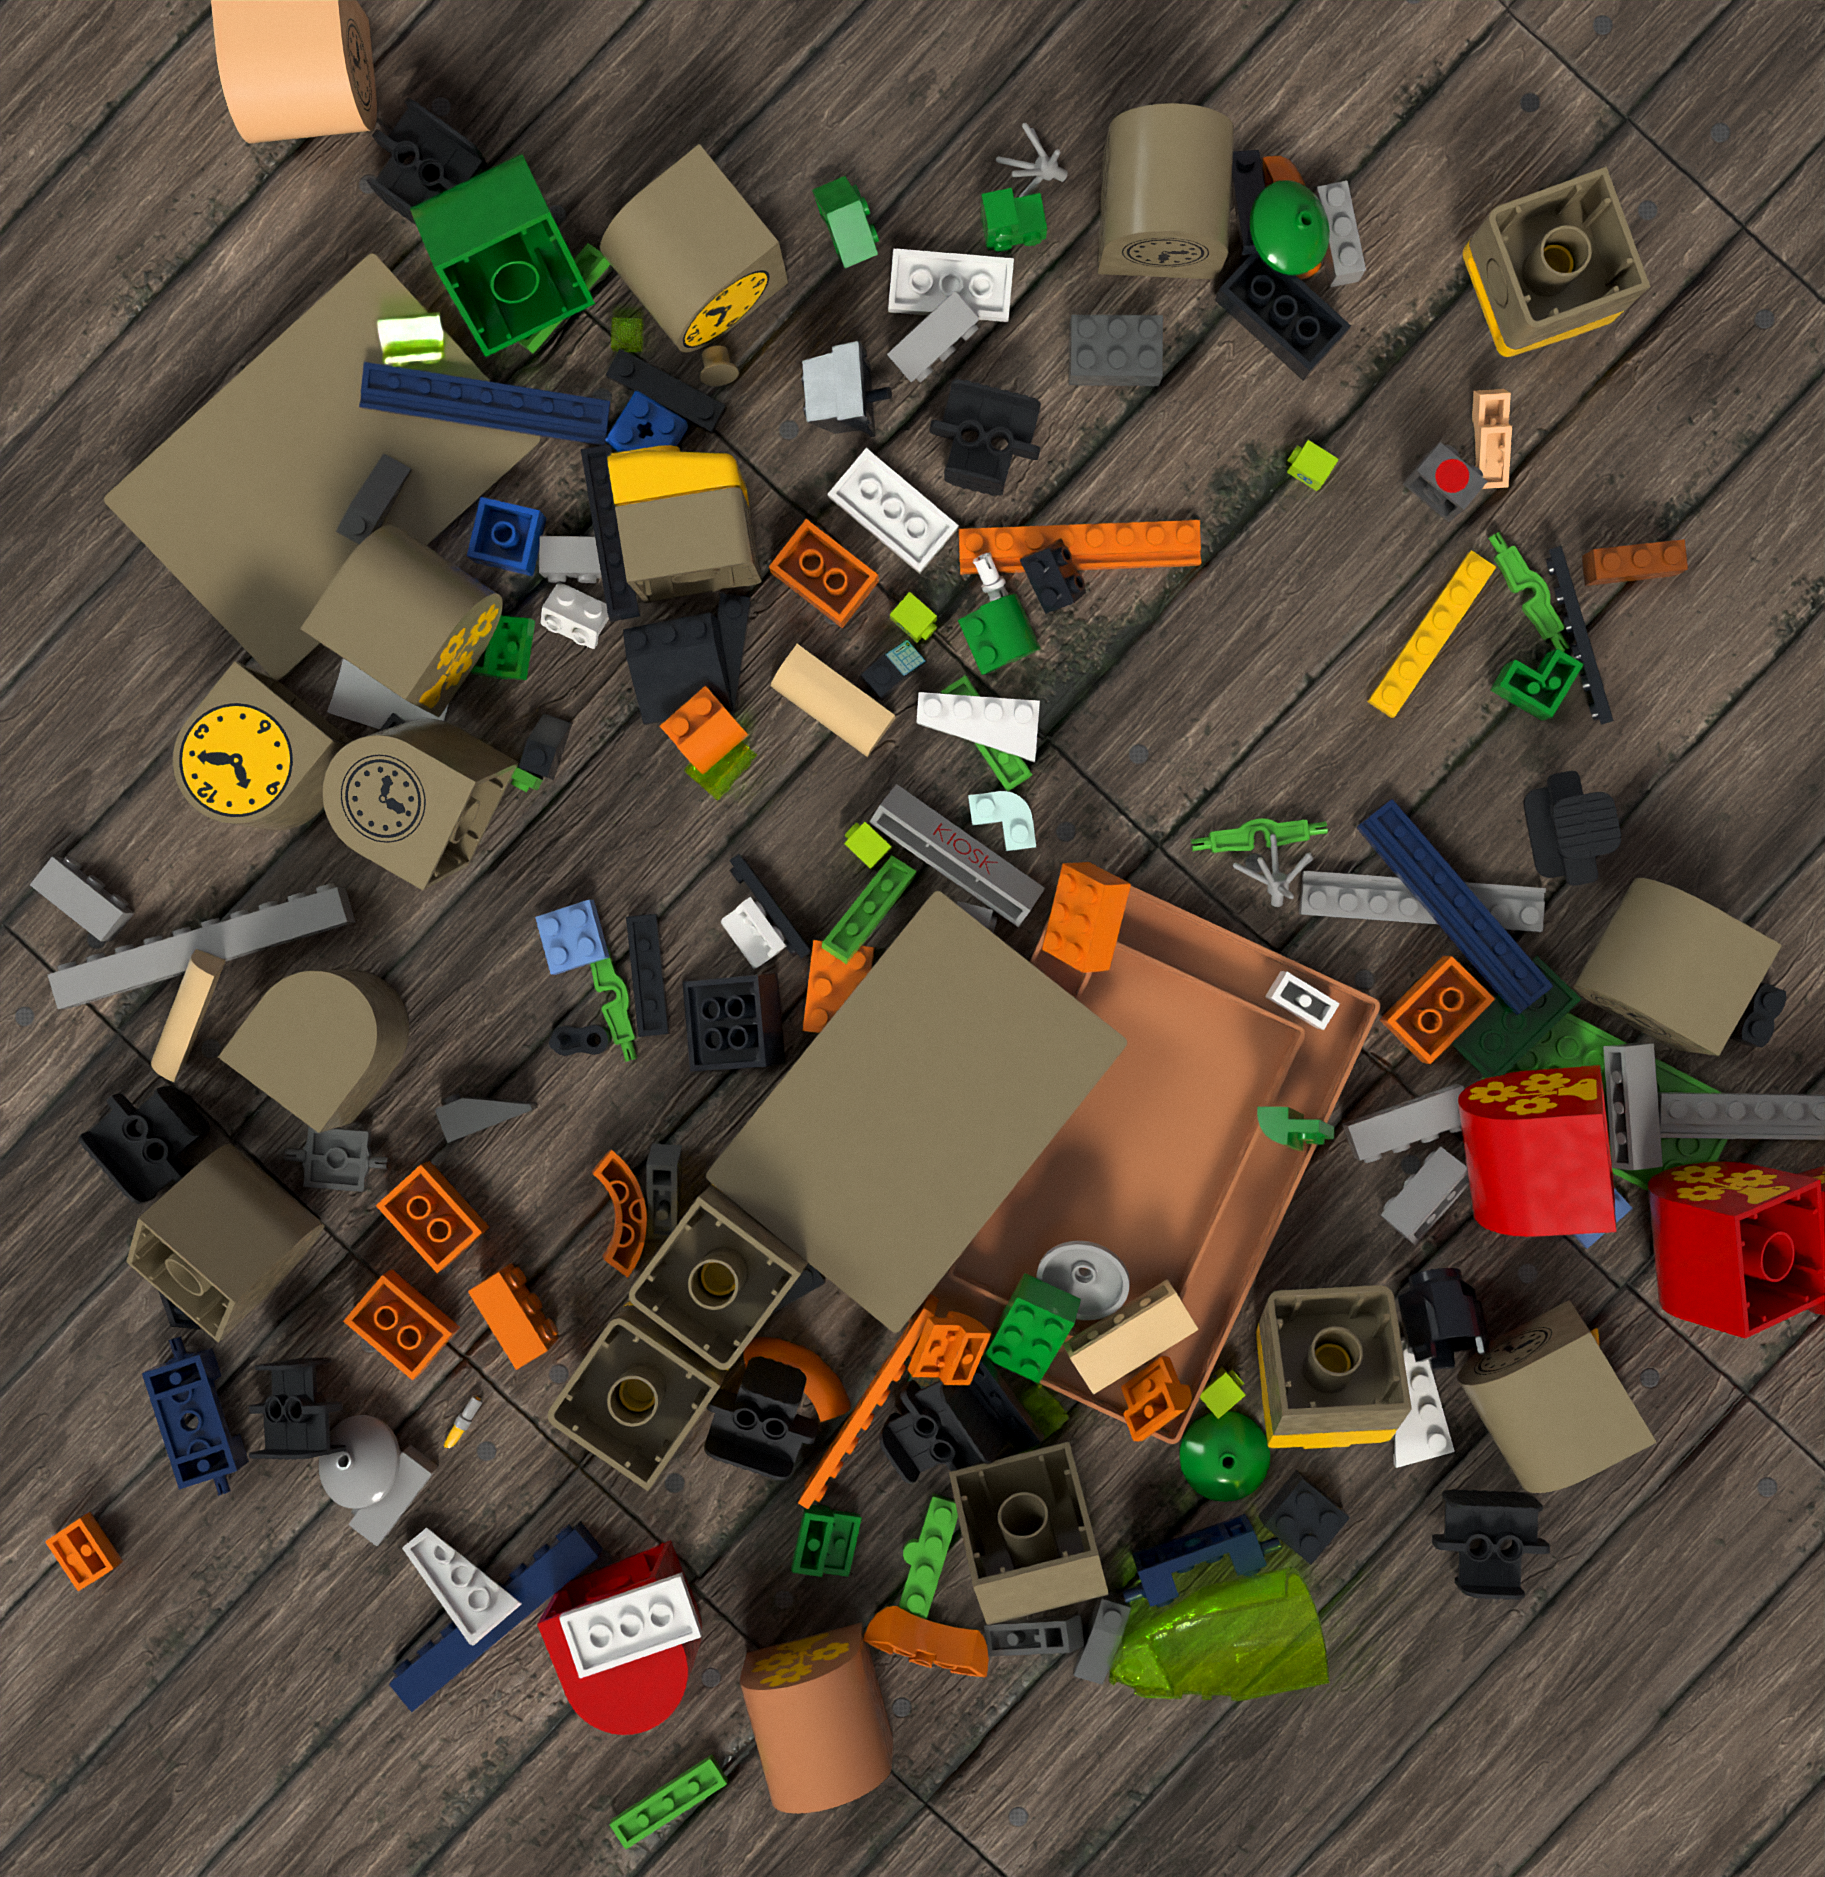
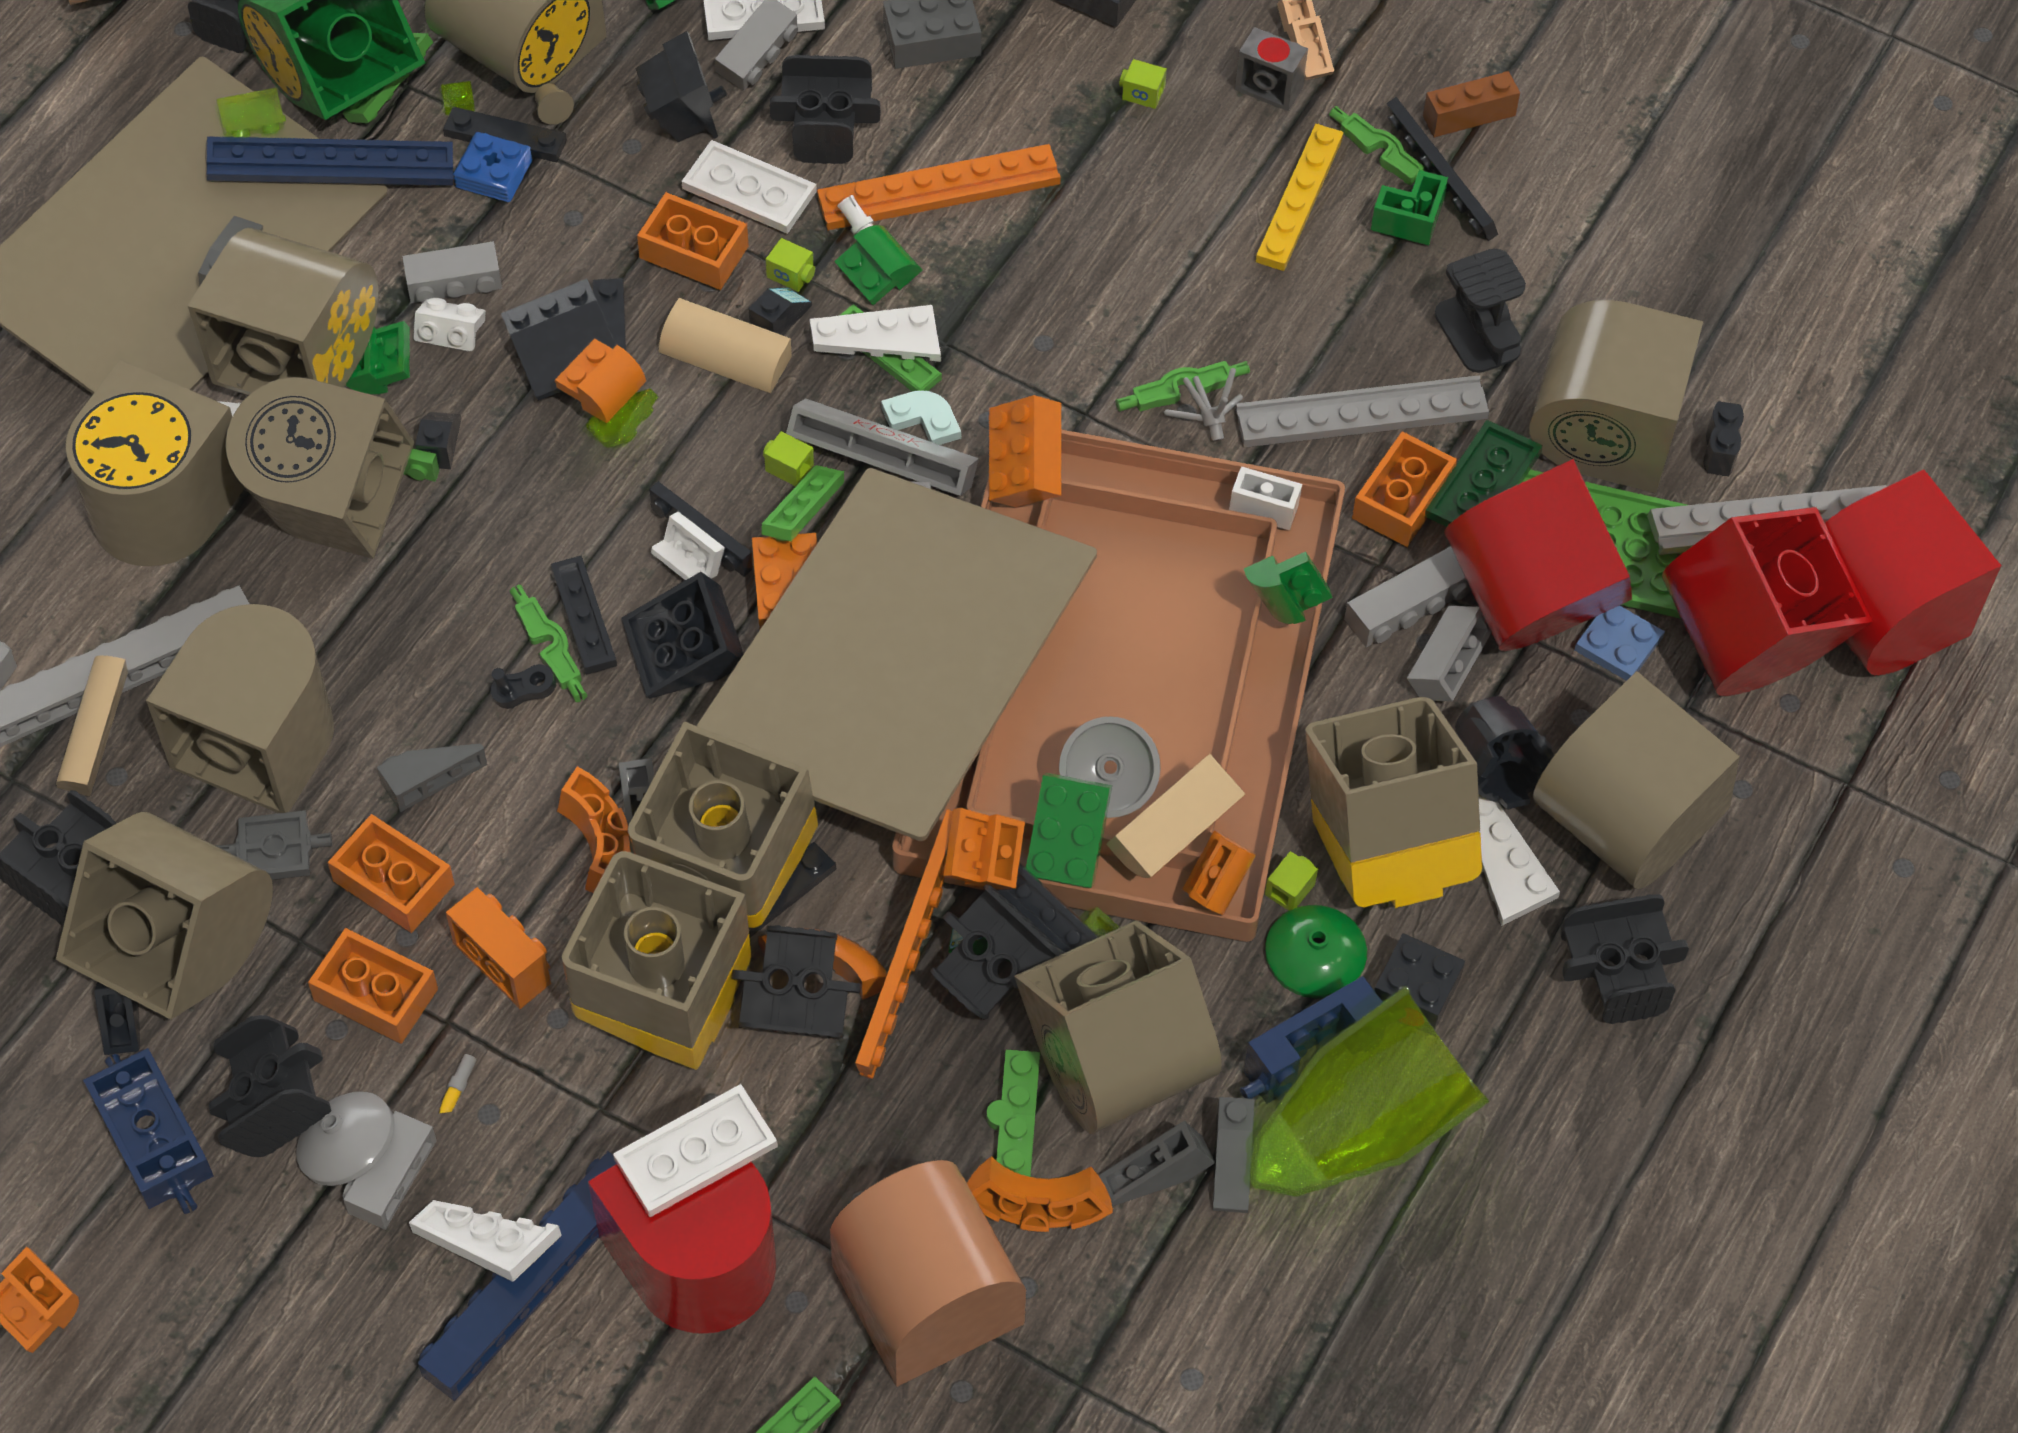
camera: 20 degrees left, 30 degrees down
(506, 536) = (381, 250): blue brick -> none
(572, 937) = (496, 593): medium blue plate -> none
(619, 595) = (474, 236): black plate -> none
(682, 522) = (549, 207): dark tan piece -> none
(826, 1541) = (896, 1114): green brick -> none
(1054, 576) = (919, 206): black bracket -> none
(1454, 907) = (1393, 396): dark blue plate -> none
(1633, 1106) = (1628, 524): light grey brick -> none

